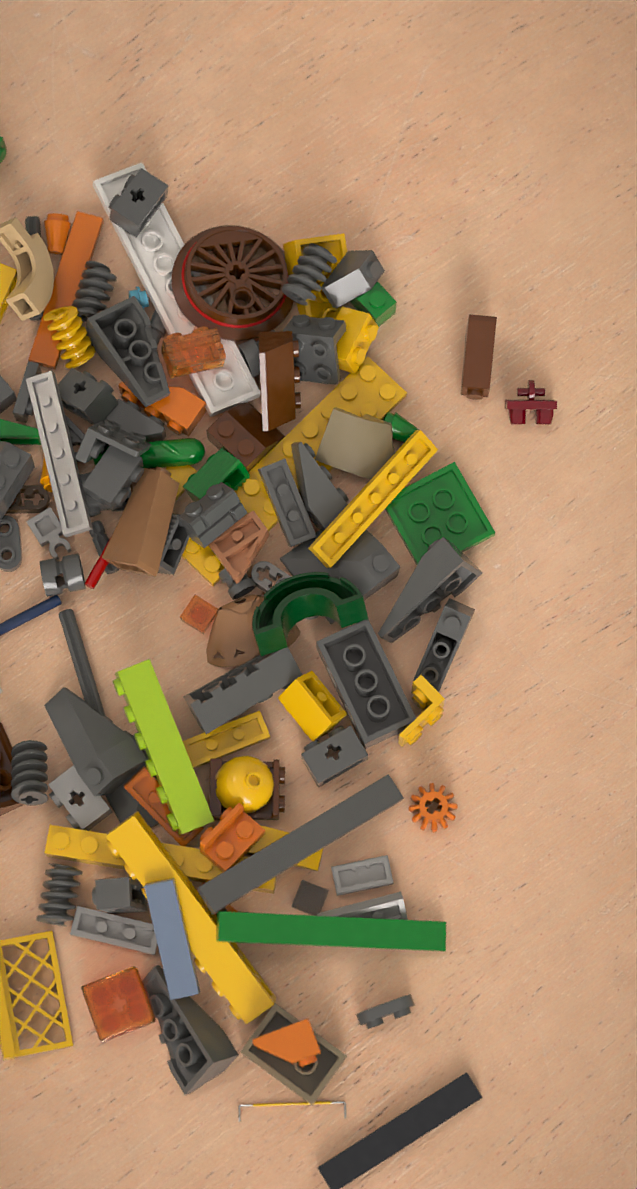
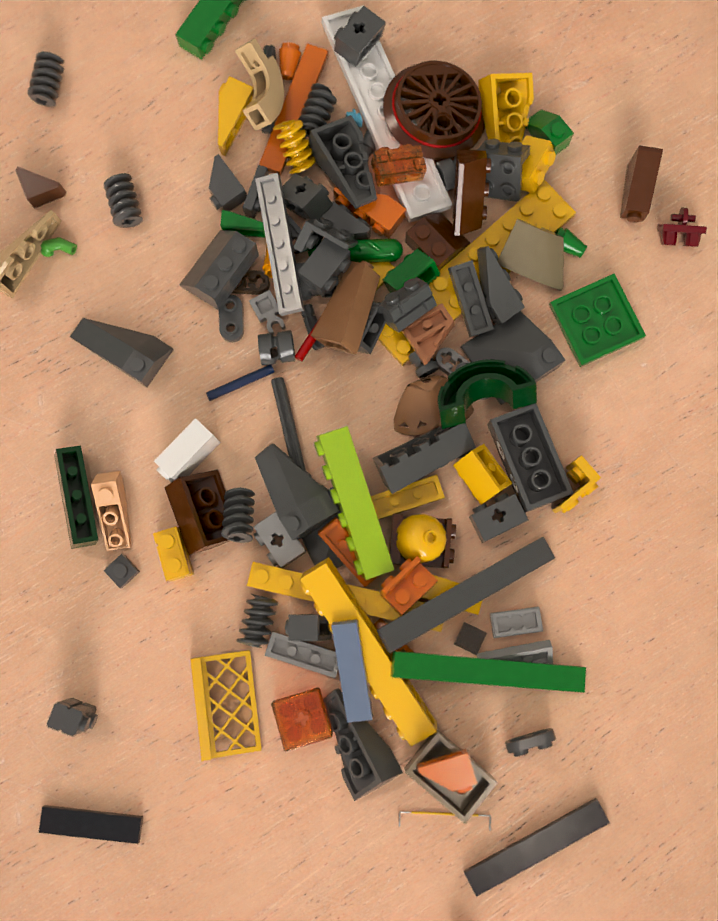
camera: 10 degrees right, 5 degrees up
(199, 614) = (389, 388): clear orange plate -> none
(307, 273) = (502, 103): dark grey piece -> none
(352, 277) = (537, 110): dark grey slope -> none
(373, 499) = (544, 300): yellow plate -> none
(436, 817) = (581, 578): orange gear -> none
(438, 574) = (599, 367): dark grey wedge -> none
(445, 642) = (598, 426): dark grey slope -> none

